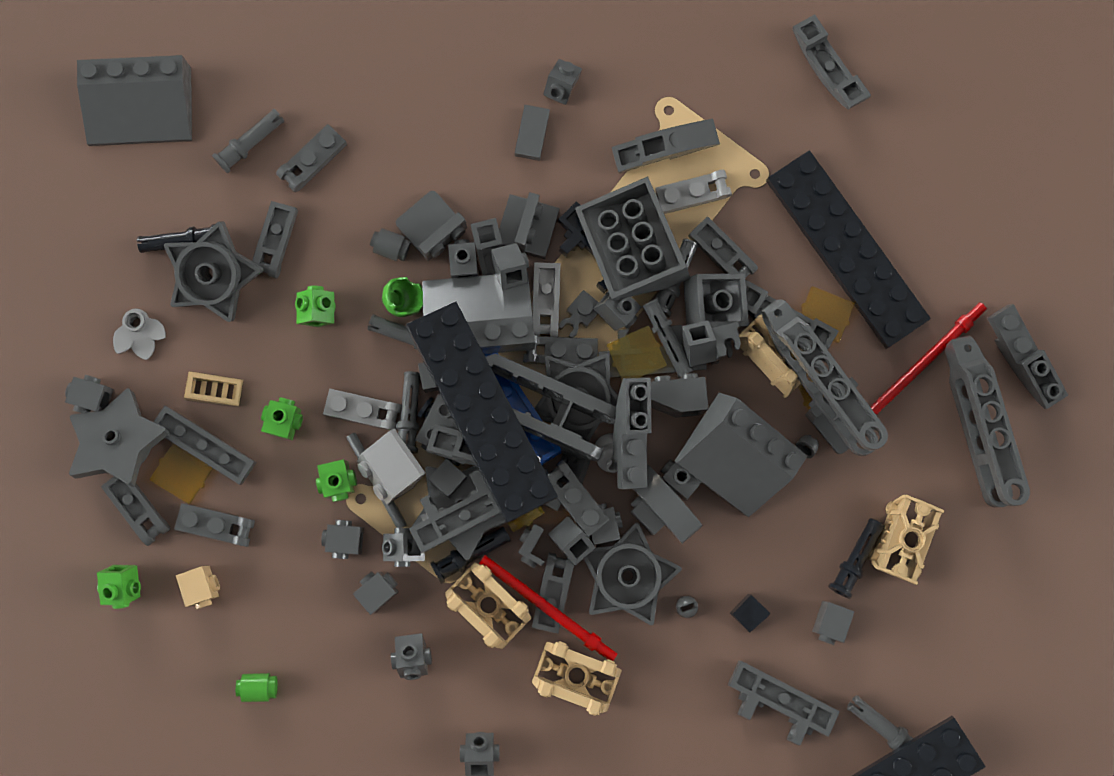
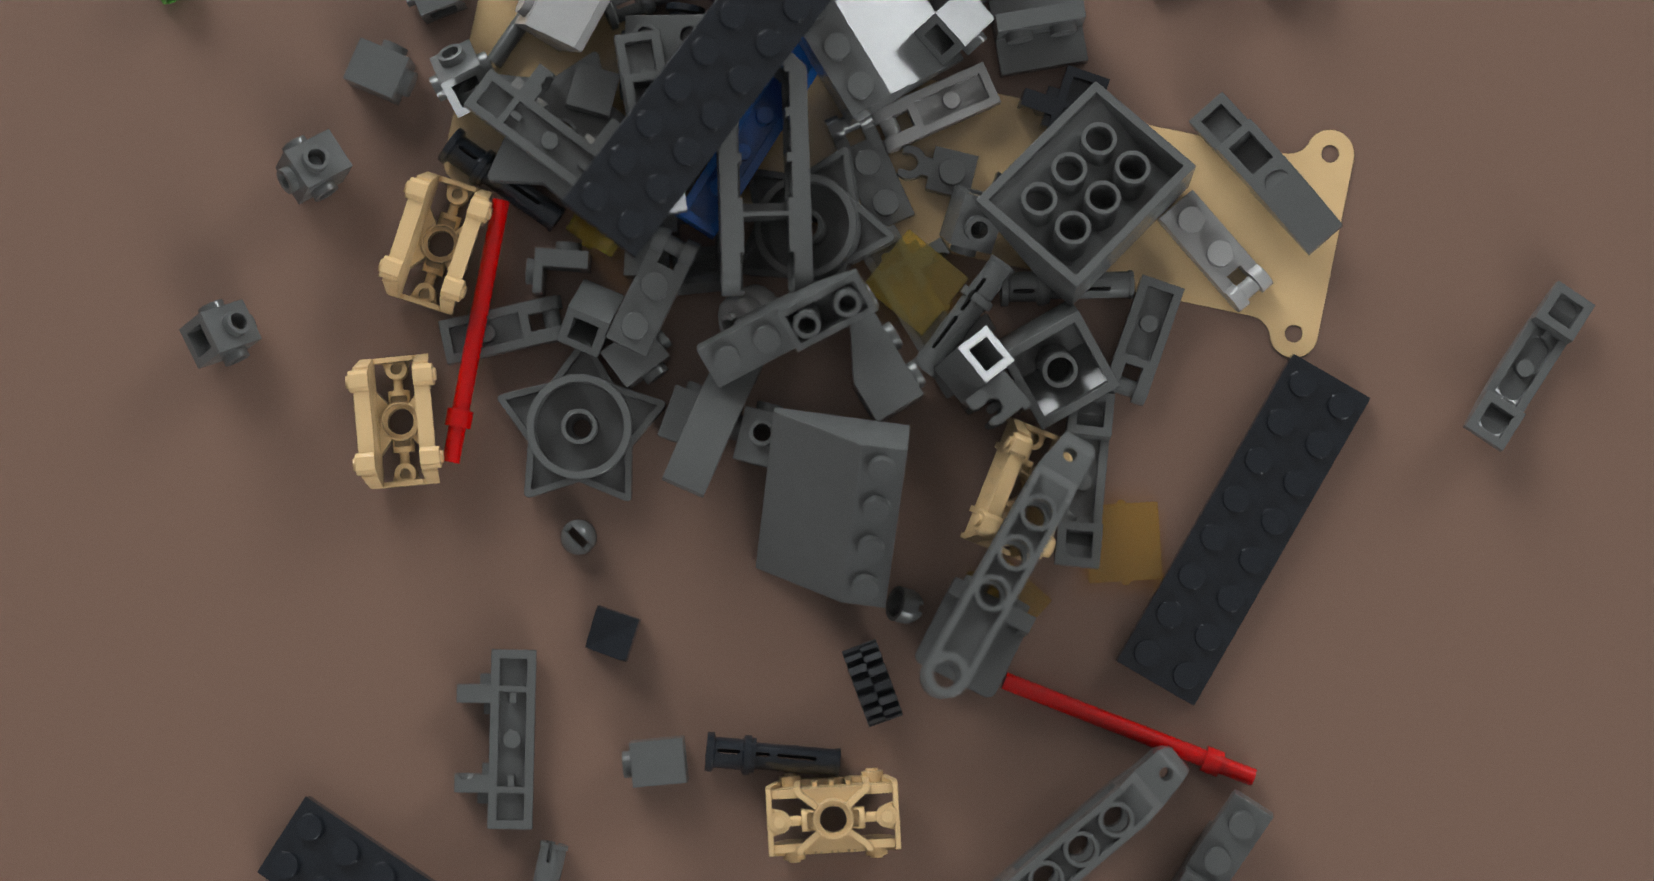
camera: 70 degrees right, 5 degrees up
(844, 482) = (872, 683): none -> black tyre

